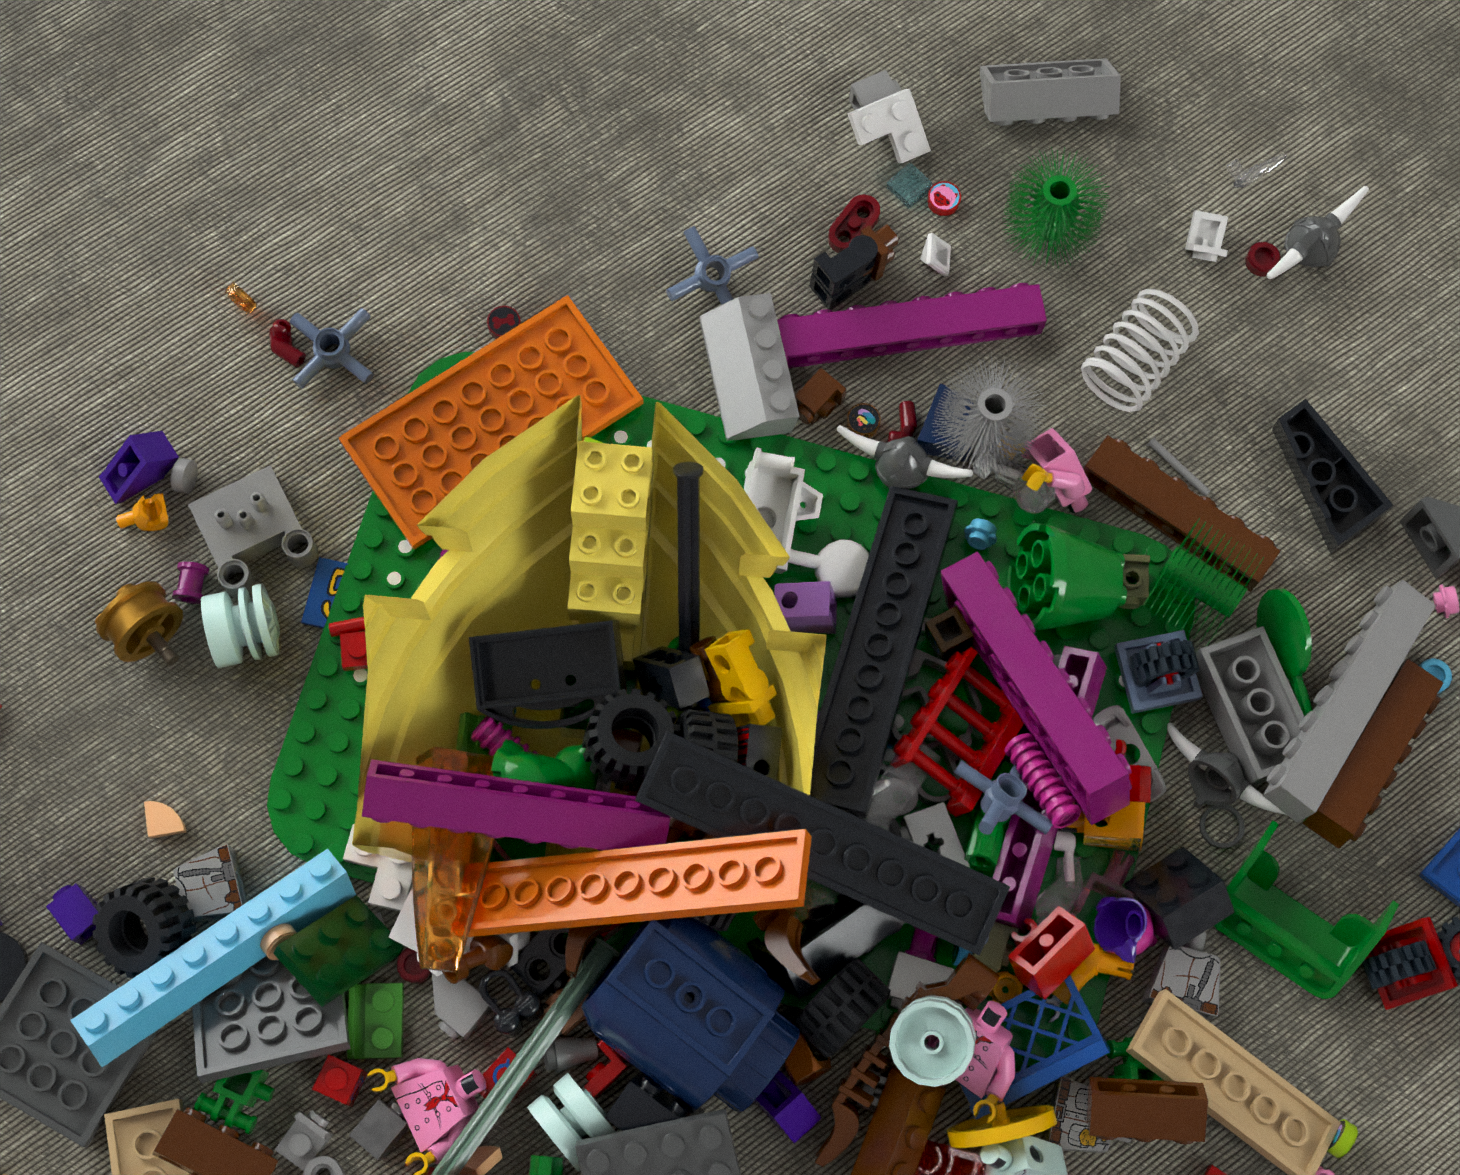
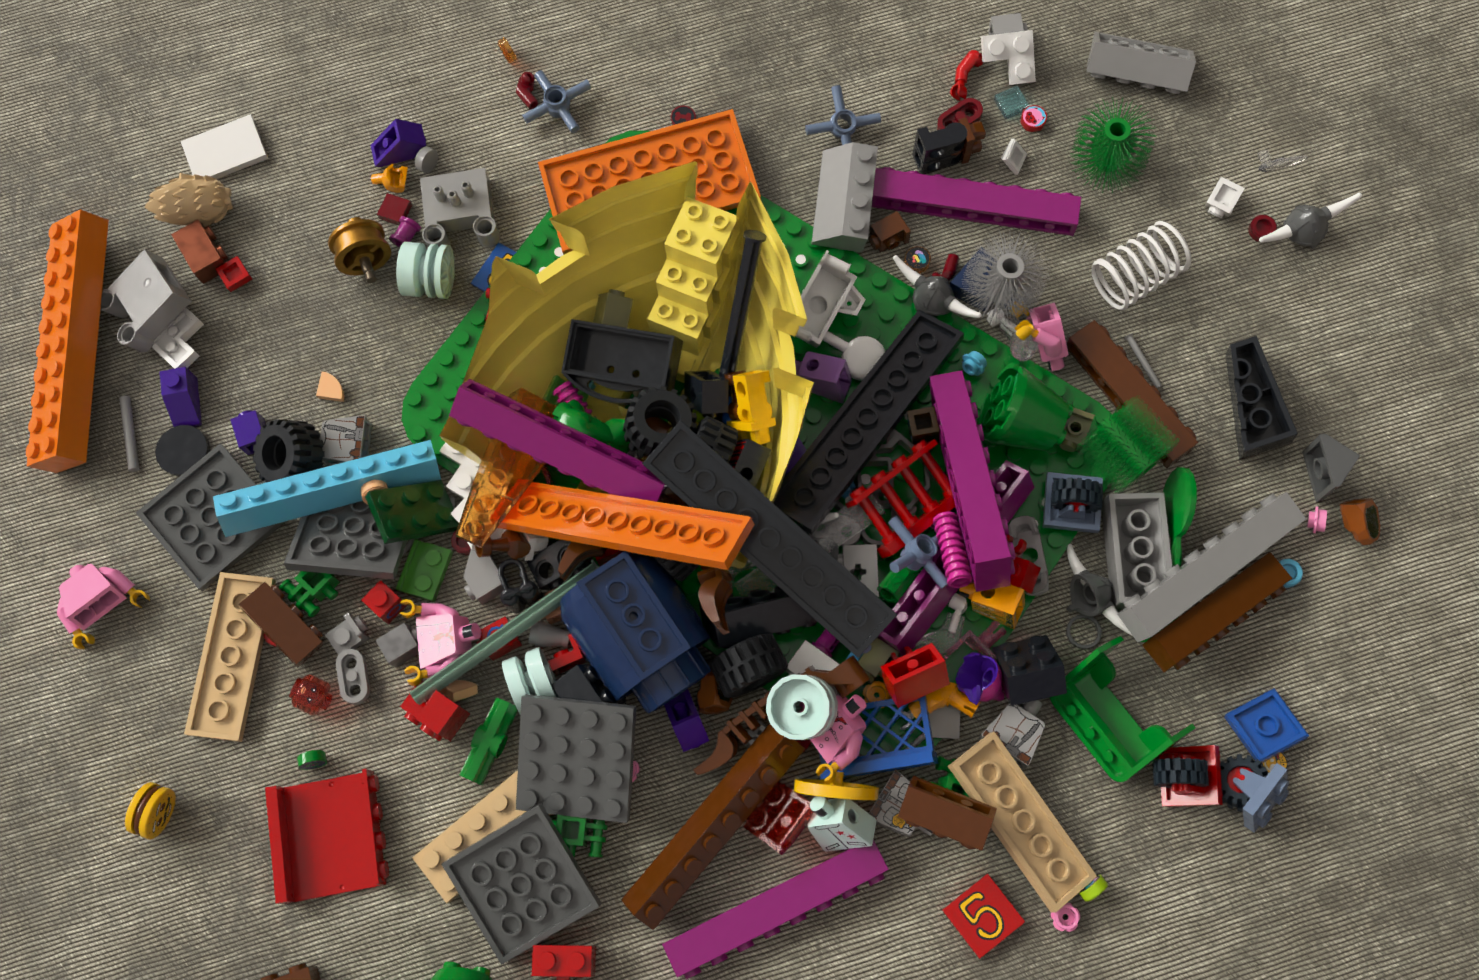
camera: 30 degrees right, 0 degrees up
(163, 554) = (393, 208): none -> dark red tile
(514, 608) = (613, 309): none -> olive brick
(843, 144) = (972, 58): none -> red arm
(1100, 999) = (944, 724): none -> light grey piece

